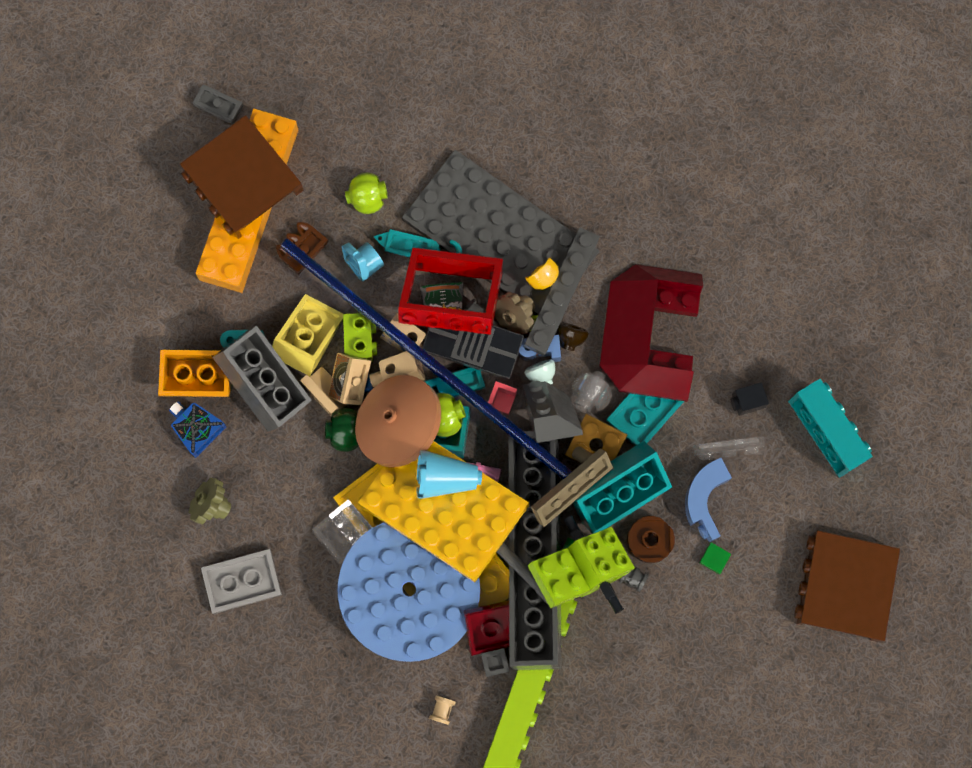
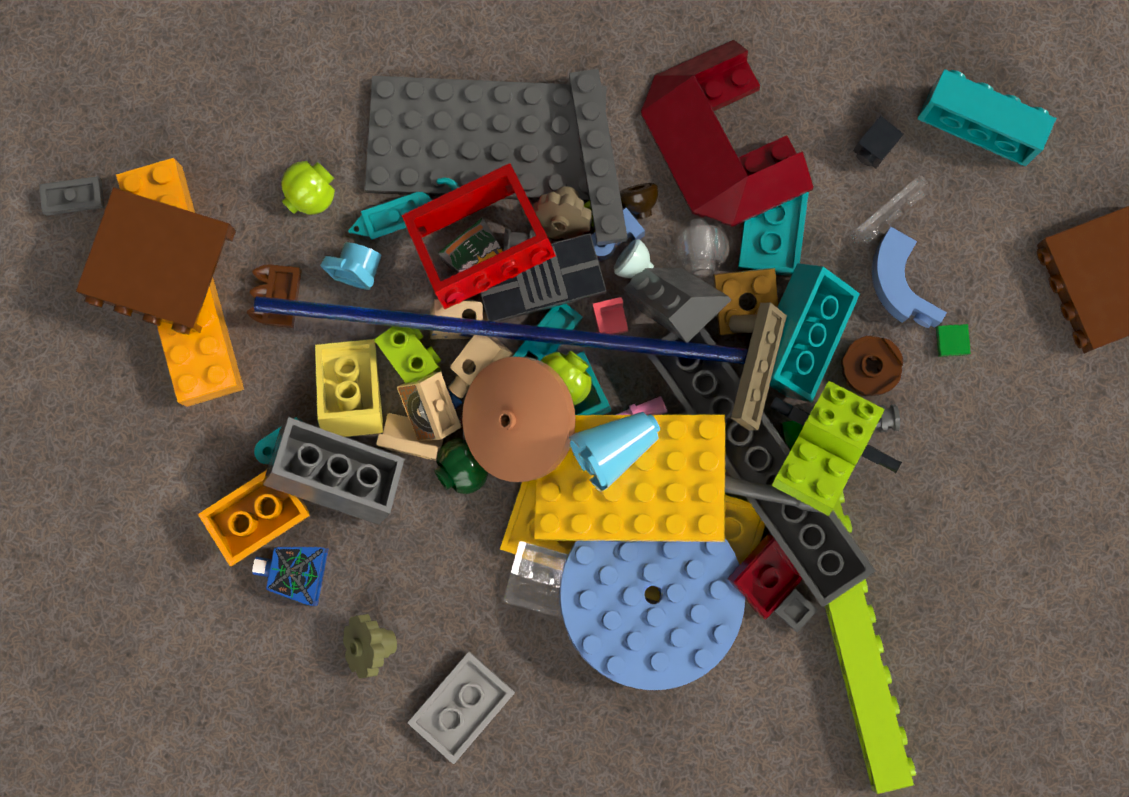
camera: 25 degrees left, 5 degrees up
(442, 710) = (773, 699): tan bush -> none
(544, 275) = (566, 152): yellow hair -> none

